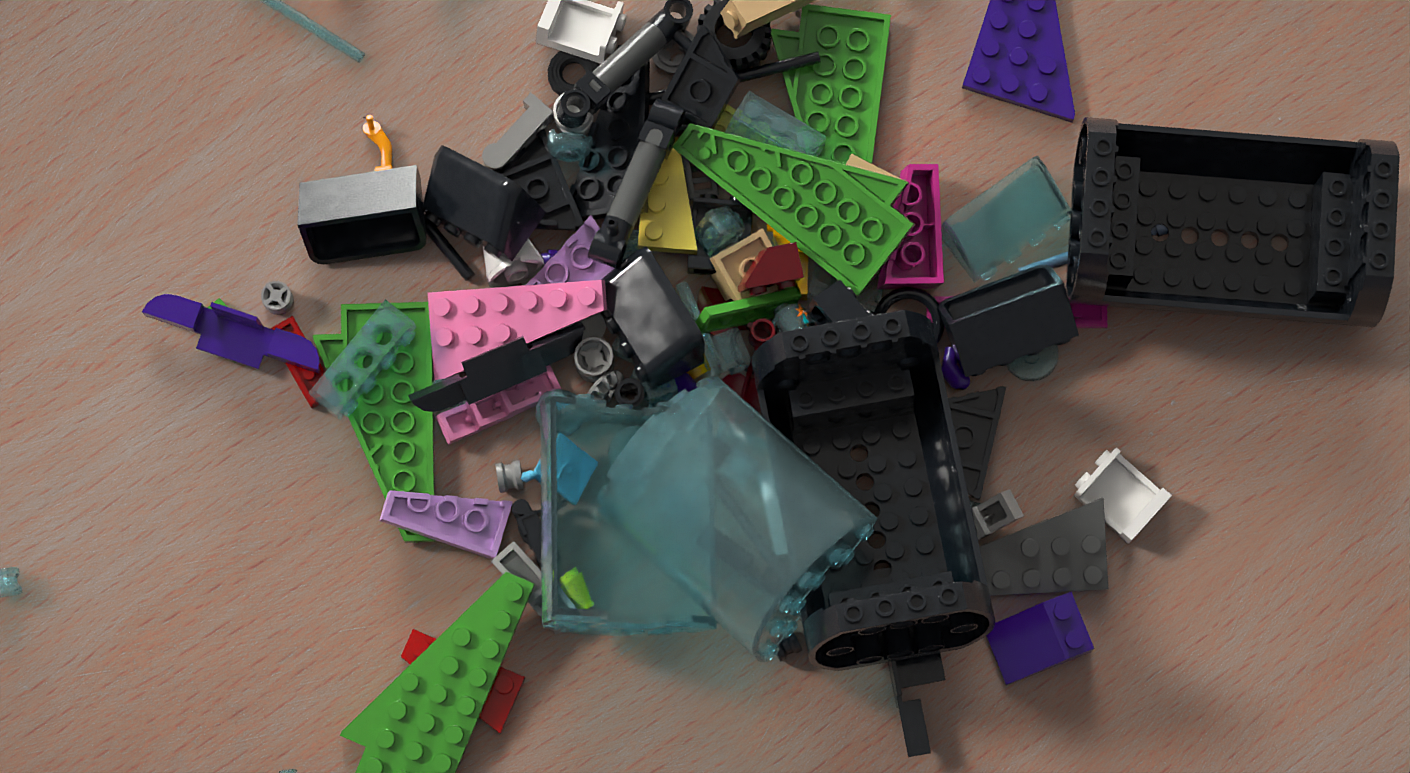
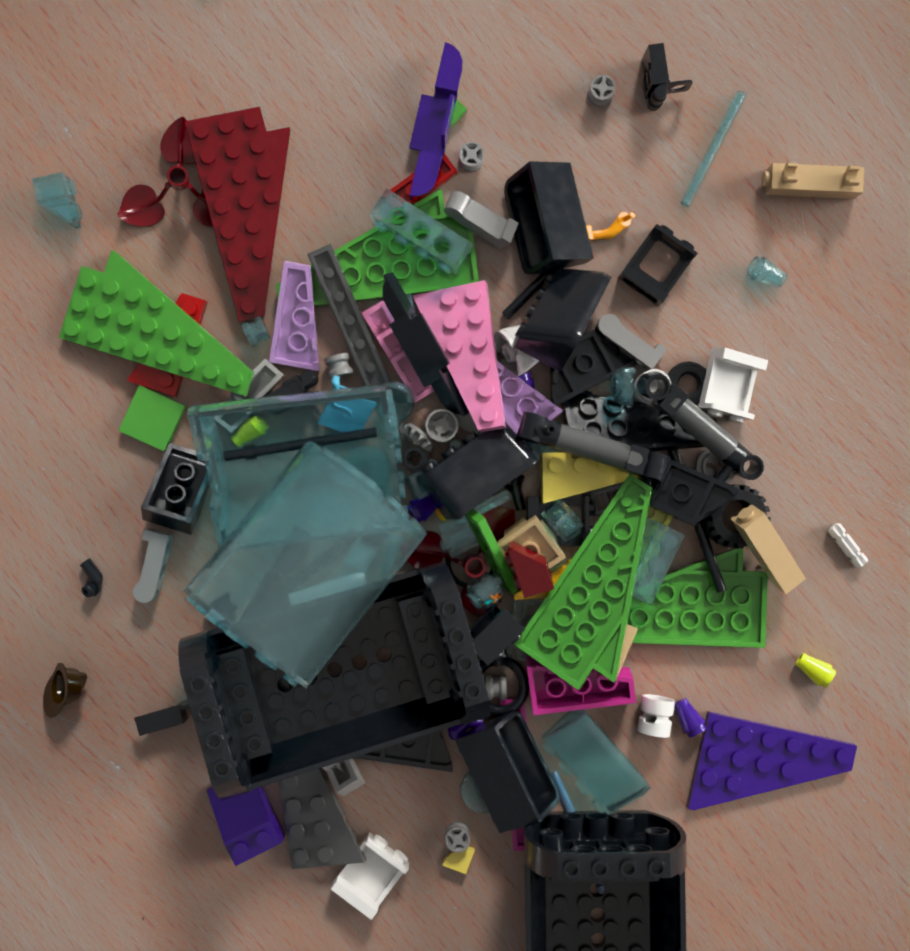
camera: 80 degrees right, 10 degrees up
(211, 75) = (656, 77): none -> black piece
(214, 134) = (603, 84): none -> light grey wheel
(221, 638) = (140, 204): none -> dark red plant
(285, 570) = (242, 186): none -> dark red wing
(356, 290) = (480, 219): none -> light grey leg
(449, 113) = (643, 282): none -> black window
(453, 456) = (348, 316): none -> dark grey tile
(457, 570) = (256, 331): none -> clear light blue wheel
(548, 707) = (152, 418): none -> bright green tile
(602, 584) = (251, 451): none -> black bar
(638, 680) = (177, 490): none -> black slope
(693, 281) = (516, 492): none -> black bar
(753, 729) = (154, 565): none -> light grey leg
(948, 149) = (653, 707): none -> white wheel
(967, 108) = (689, 718): none -> dark purple cone
(1088, 384) = (455, 841): none -> light grey wheel
(1112, 390) = (459, 861): none -> light yellow tile

